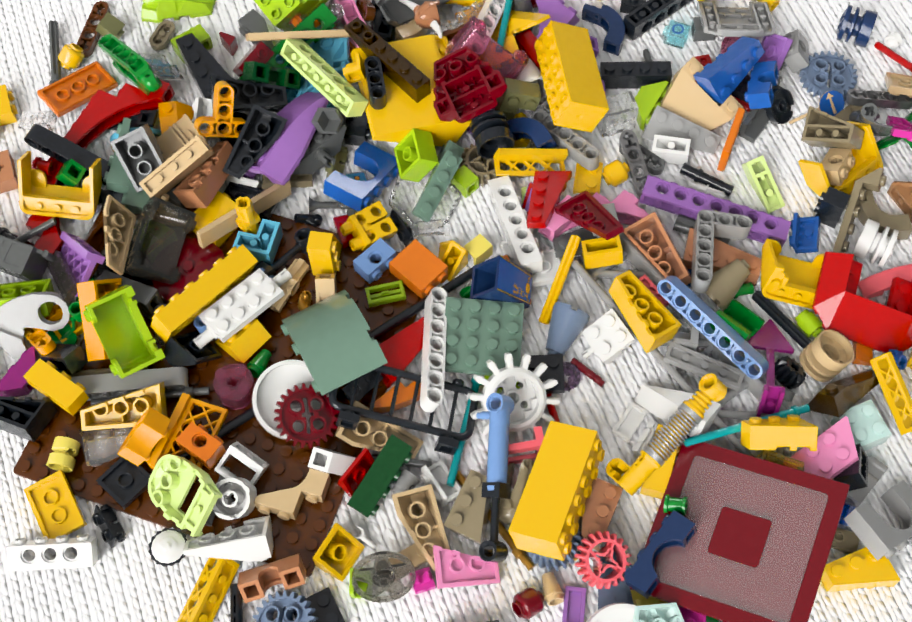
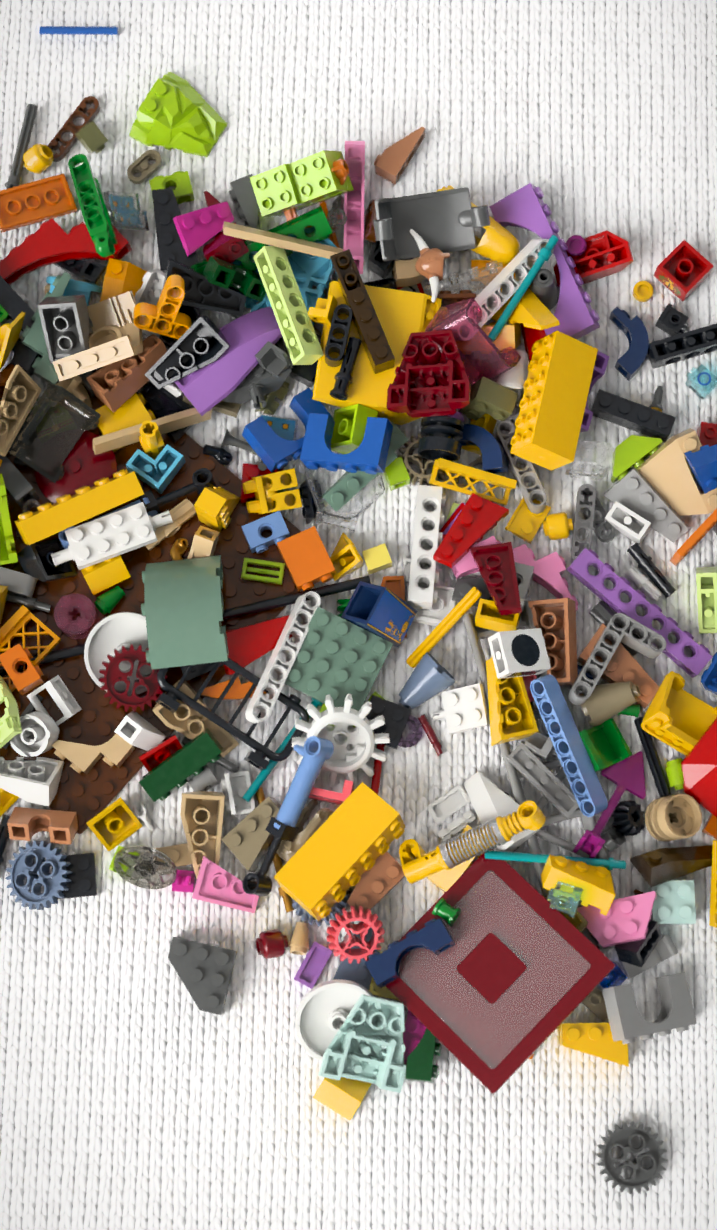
camera: 20 degrees right, 15 degrees up
(227, 53) = (201, 225): none -> dark pink wing
(392, 111) = (344, 377): none -> black pin
(438, 164) = (368, 457): none -> blue arch
(636, 267) = (519, 653): none -> white brick
(778, 441) = (565, 898): none -> clear light blue brick

